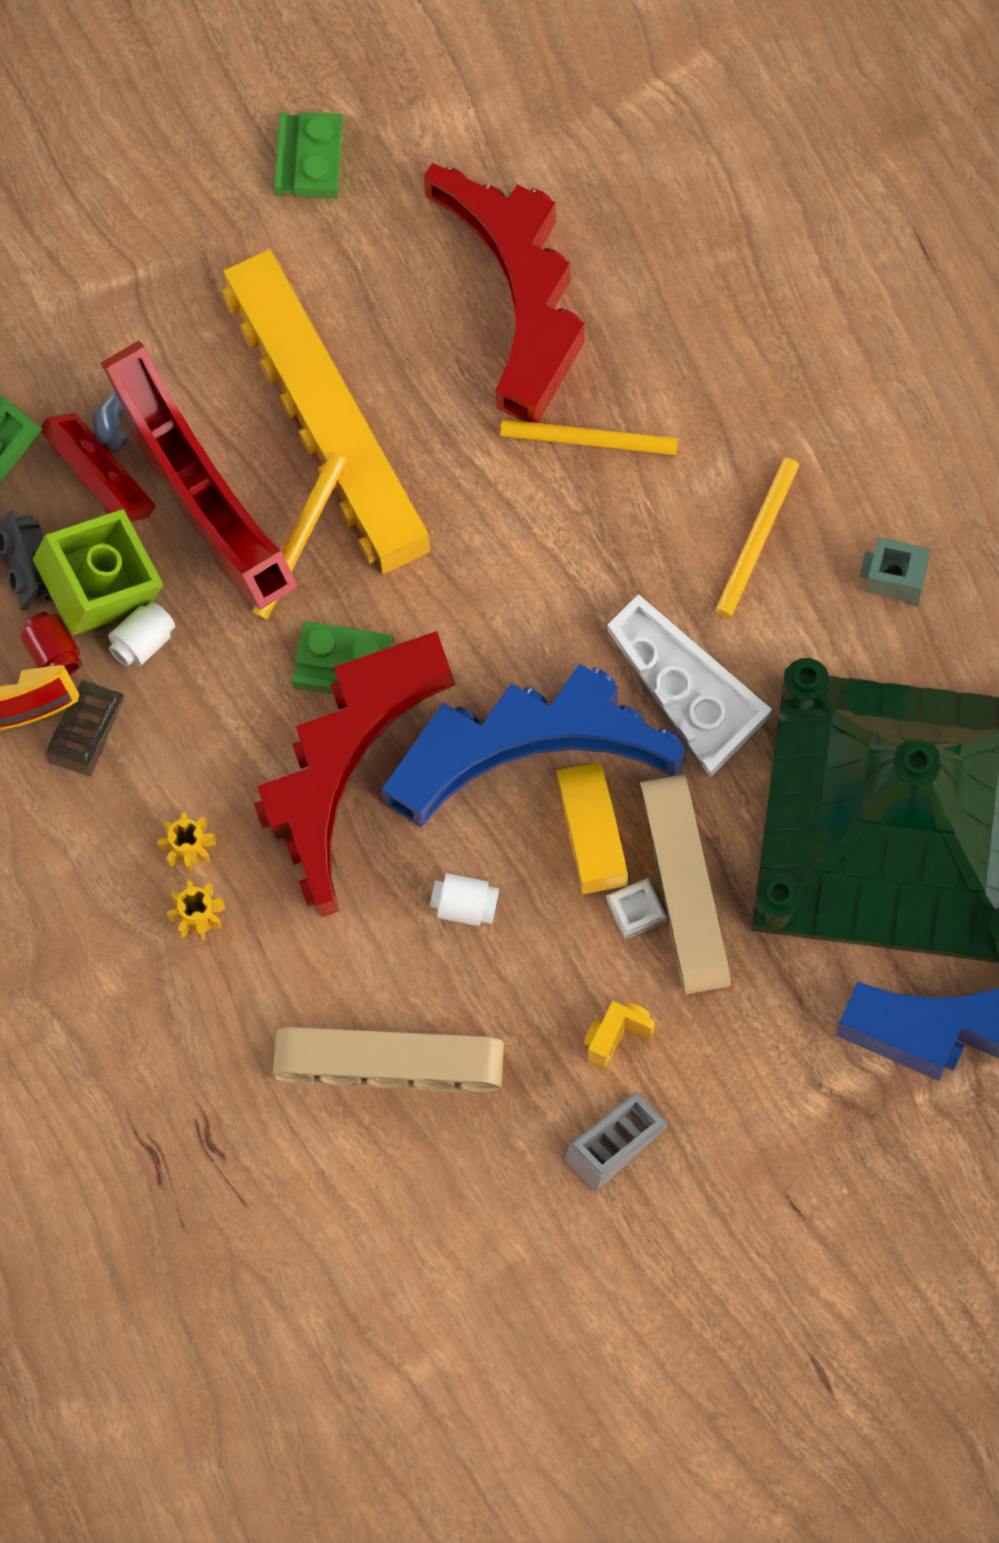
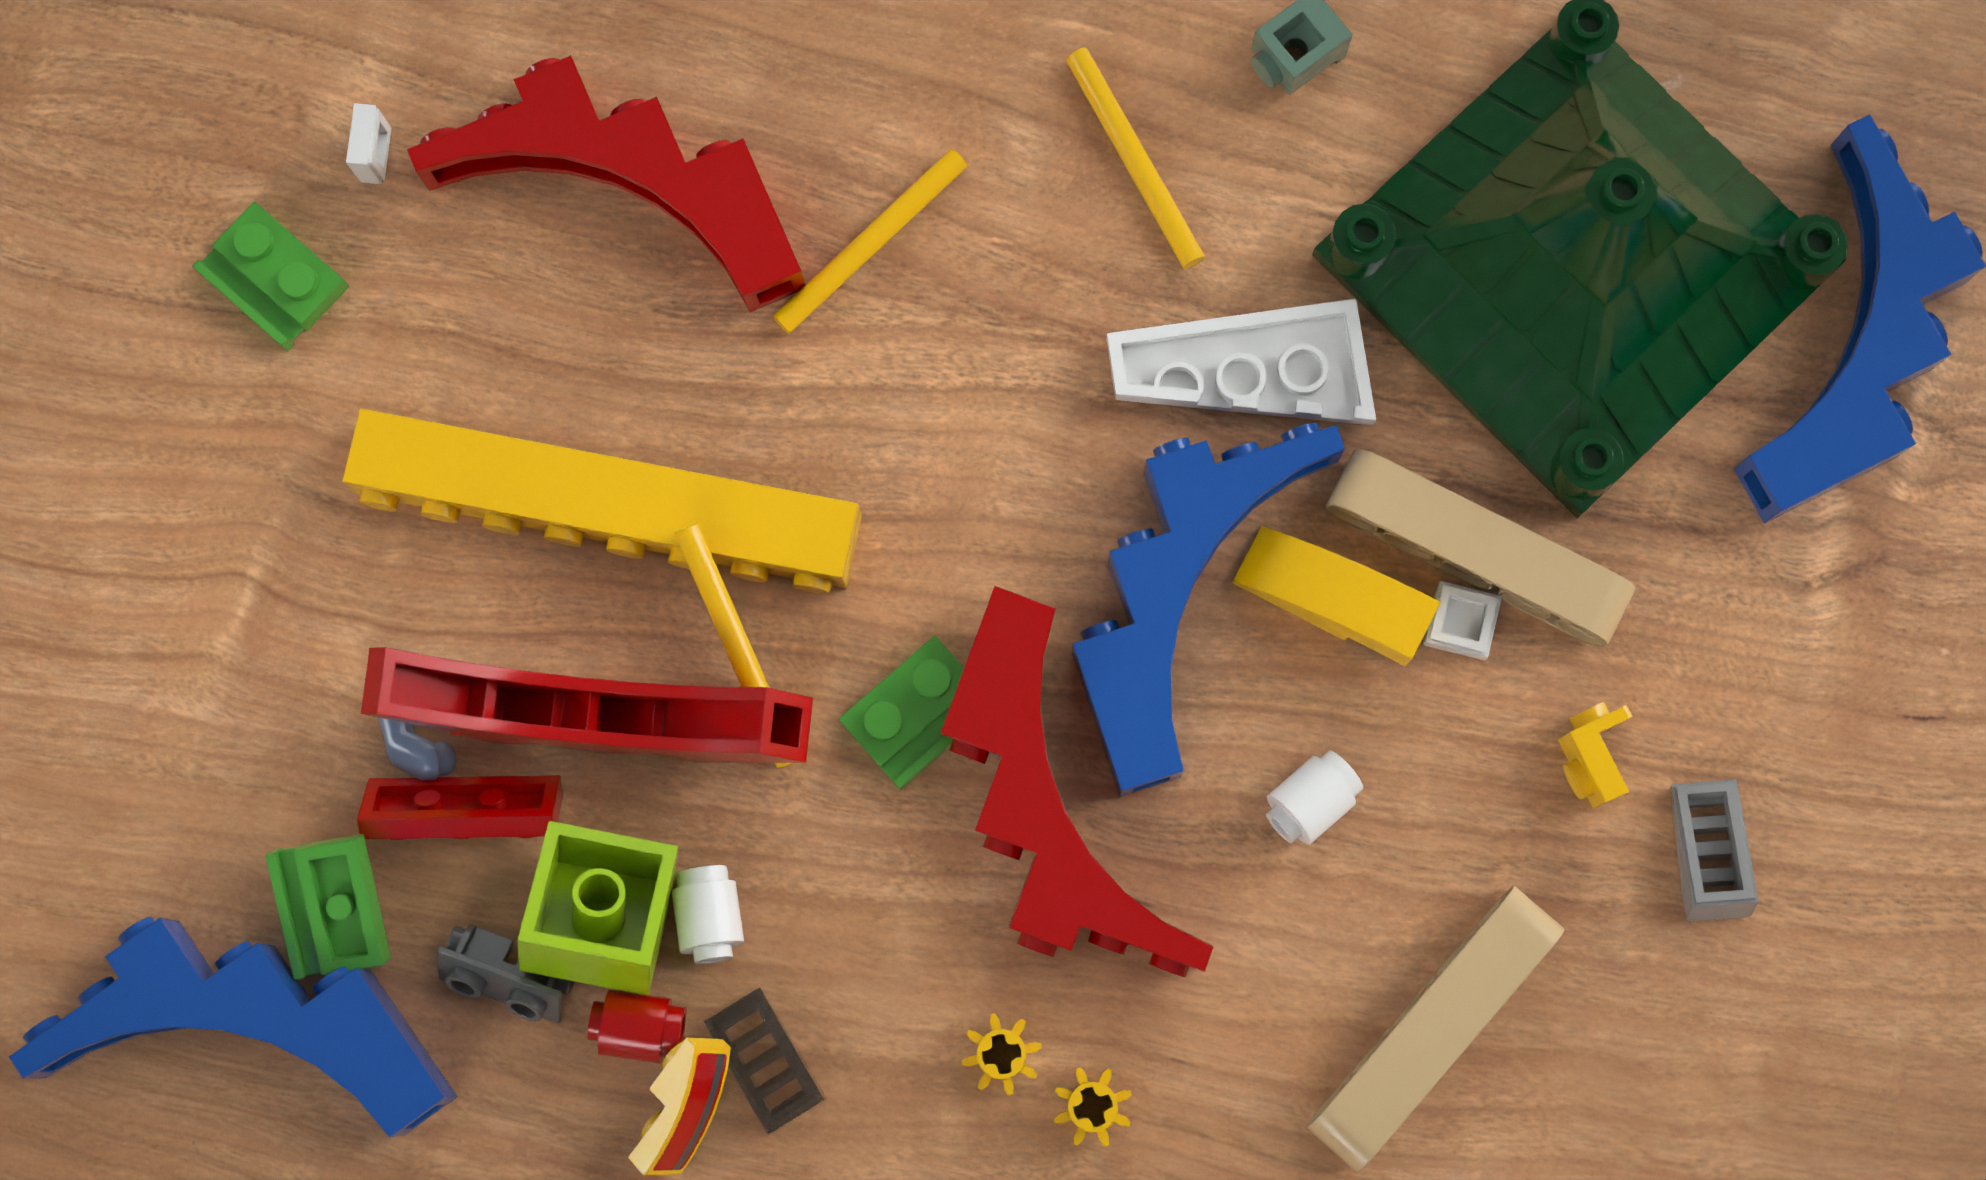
camera: 50 degrees left, 10 degrees up
(421, 144) = (368, 144): none -> white tile

